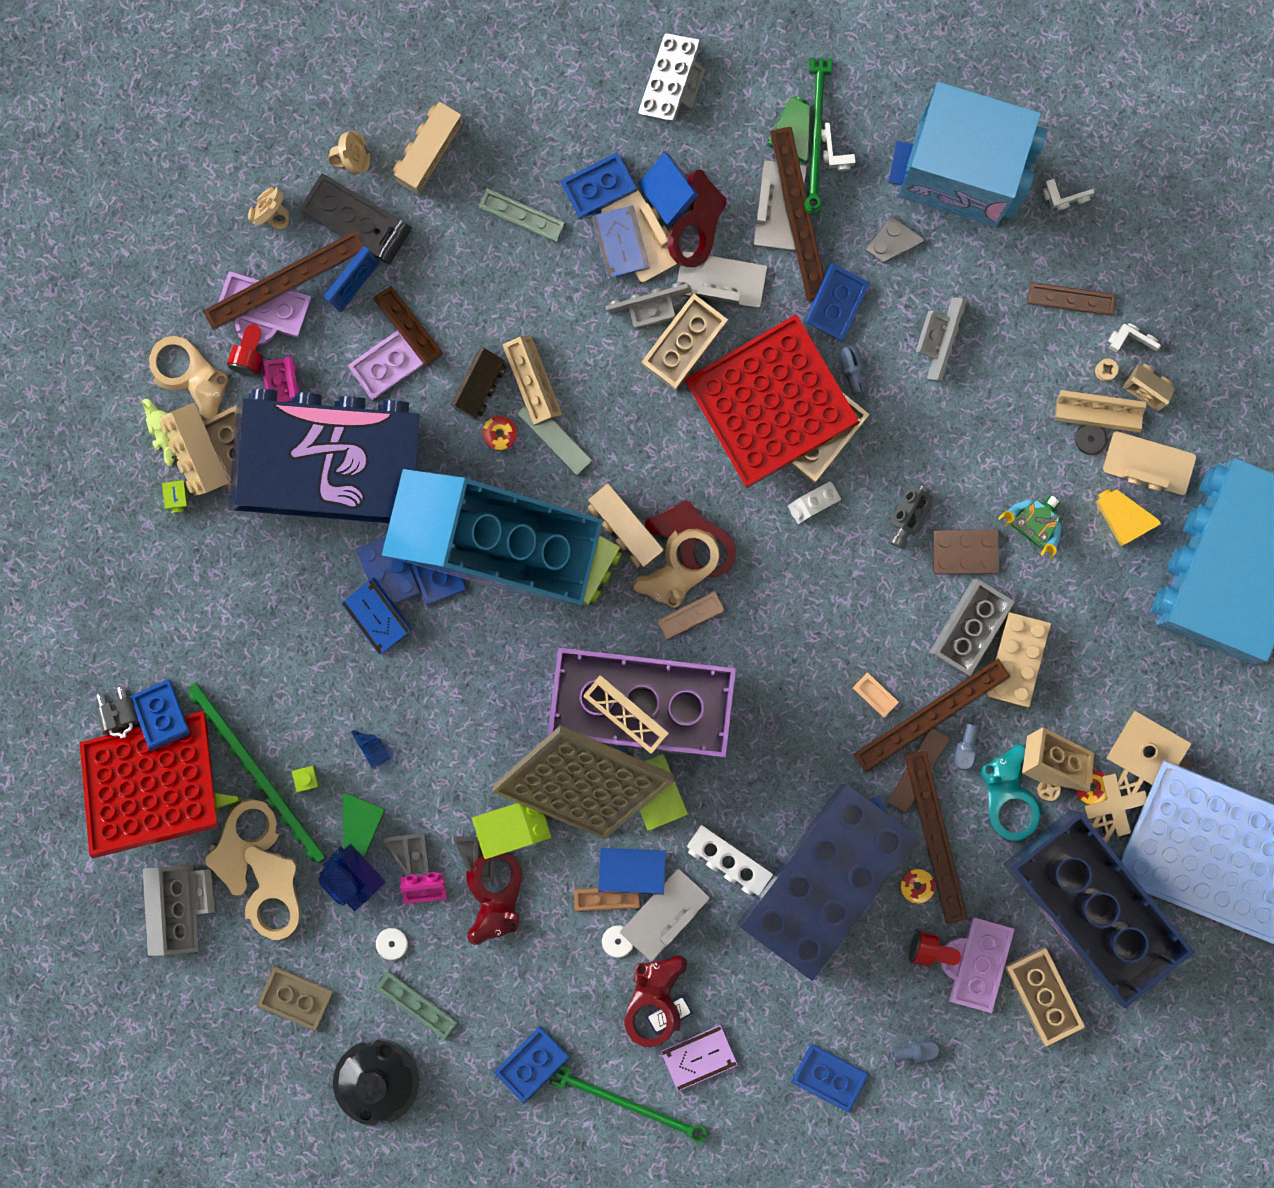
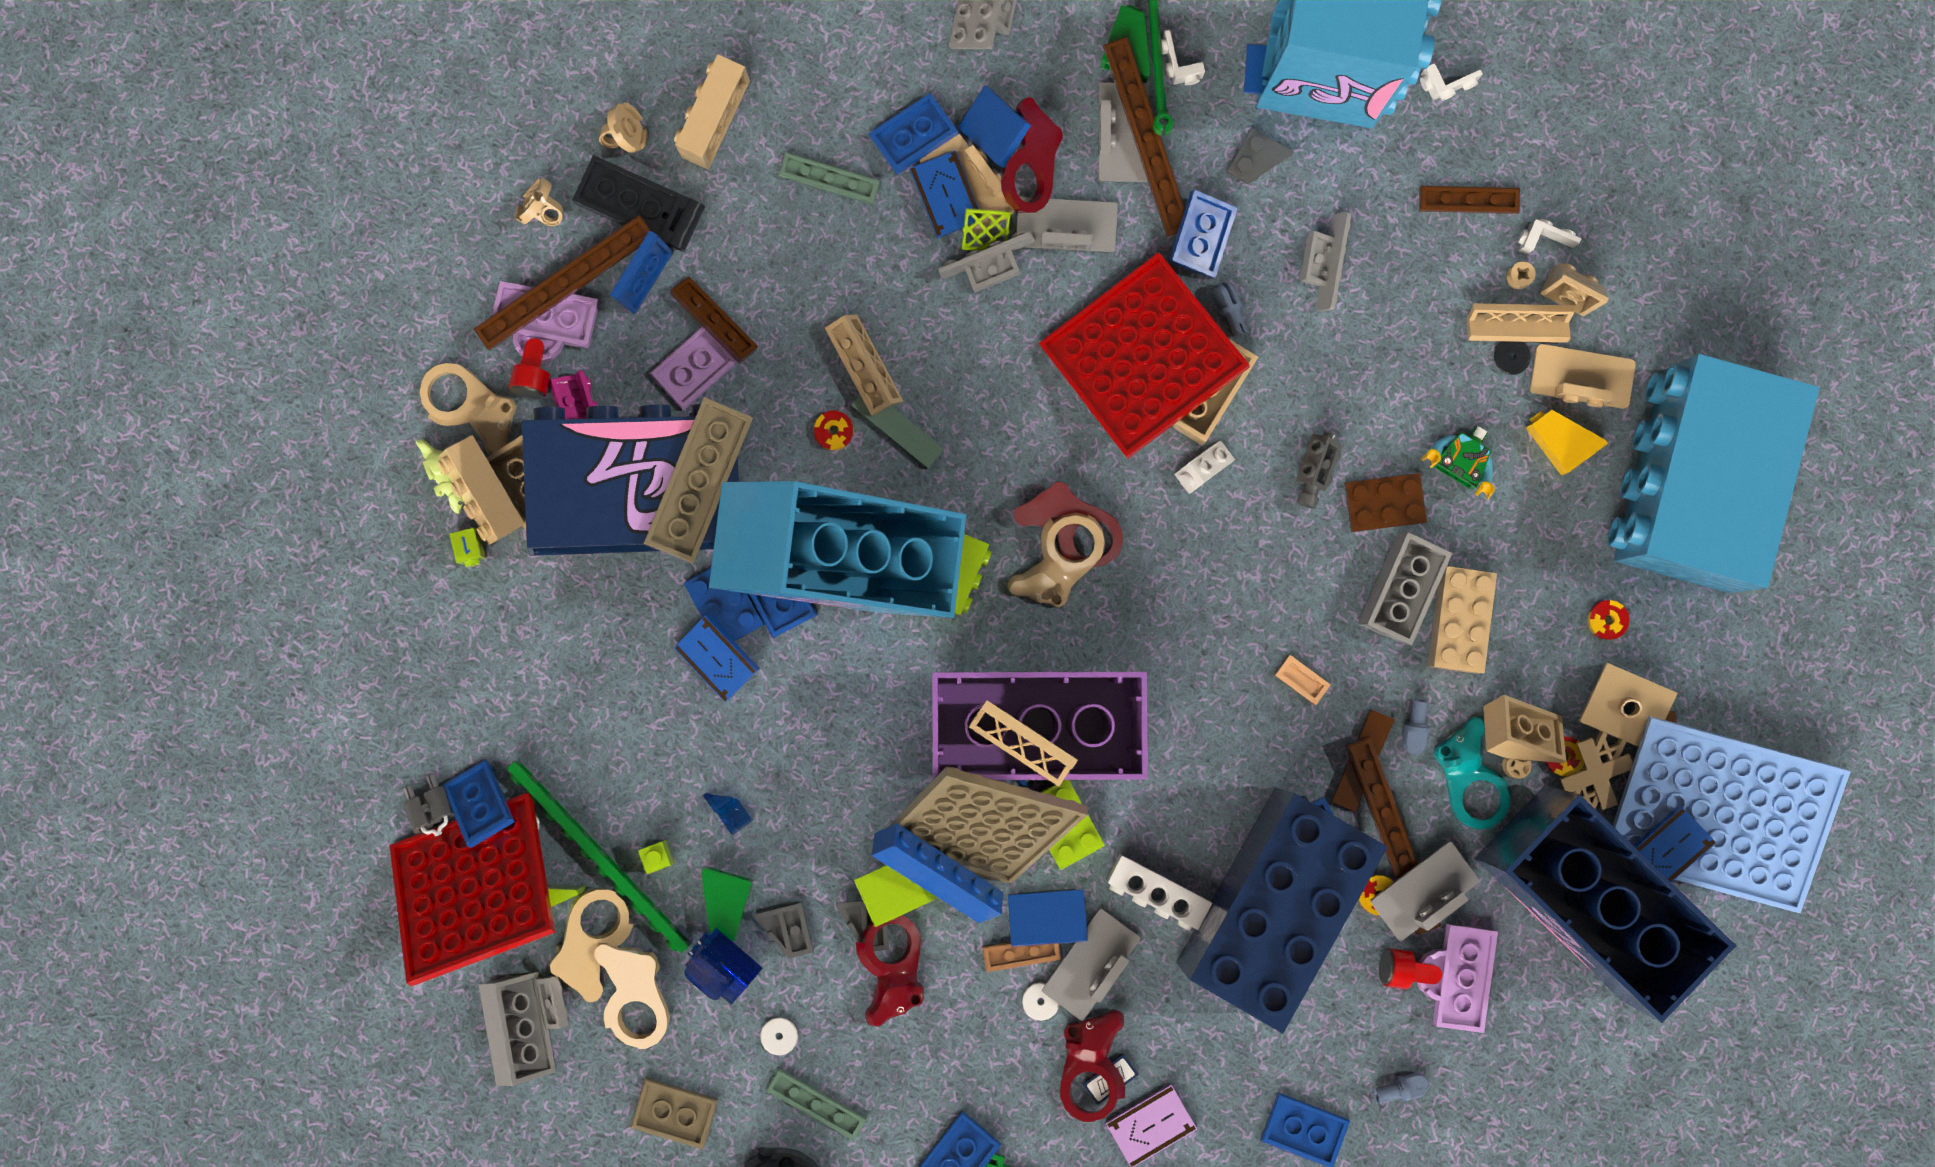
camera: 10 degrees left, 0 degrees up
(382, 465) = (698, 480): none -> dark tan plate
(423, 888) = (808, 967): dark pink bracket -> none
(479, 383) = (802, 375): dark brown slope -> none
(543, 819) = (937, 873): none -> blue brick
(625, 526) = (991, 519): tan brick -> none
(650, 276) = (1005, 231): none -> lime window
(684, 342) = (1033, 300): tan brick -> none
(691, 615) = (1079, 613): medium nougat tile -> none
(932, 715) = (1373, 695): reddish brown tile -> none
(956, 887) = (1426, 892): none -> light grey bracket
(1044, 996) = (1543, 1007): tan brick -> none
(1153, 680) = (1619, 617): none -> red piece
(1170, 873) = (1675, 843): none -> blue tile

